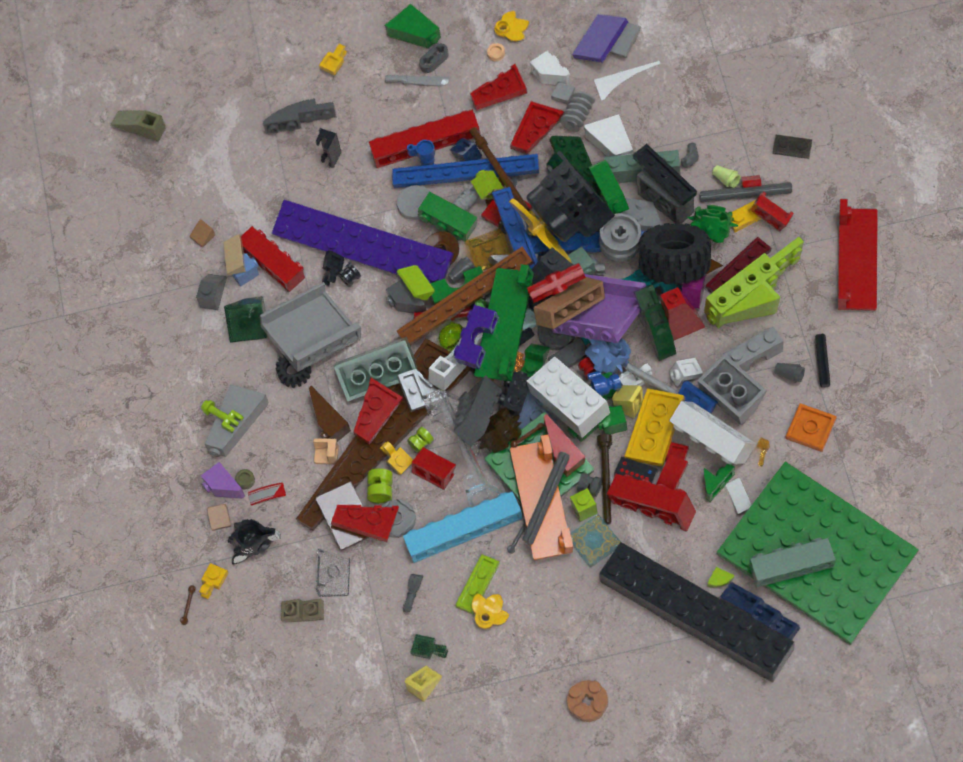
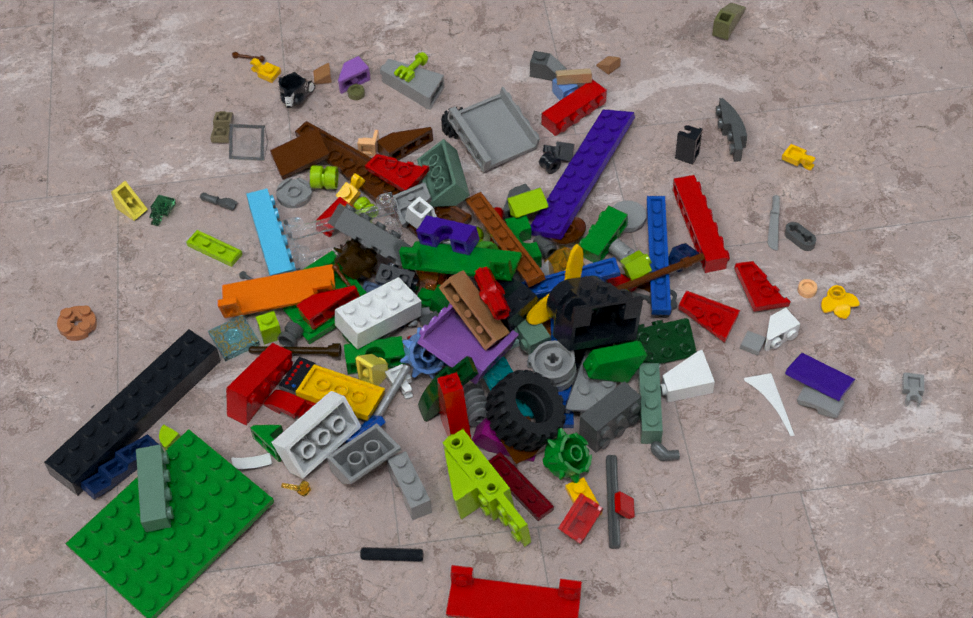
camera: 85 degrees right, 10 degrees down
(244, 319) = (517, 85): clear green slope -> none
(266, 493) = (340, 108): sticker -> none
(367, 521) = (289, 164): red wing -> none
(413, 27) = (837, 219): green slope -> none
(424, 150) = (679, 218): blue piece -> none
(490, 608) = (185, 254): yellow plate -> none
(546, 497) = (273, 288): dark grey axle -> none
(577, 110) = (726, 350): light grey piece -> none
(602, 384) = (385, 340): blue piece -> none
(664, 174) = (618, 402): black plate -> none
(685, 370) = (400, 424): white bracket -> none
(727, 176) = (631, 484): yellowish green cone -> none
(792, 146) = (670, 554): clear smoke plate -> none
(792, 372) = (380, 521): dark grey cone -> none
(811, 427) = (315, 535): orange tile -> none

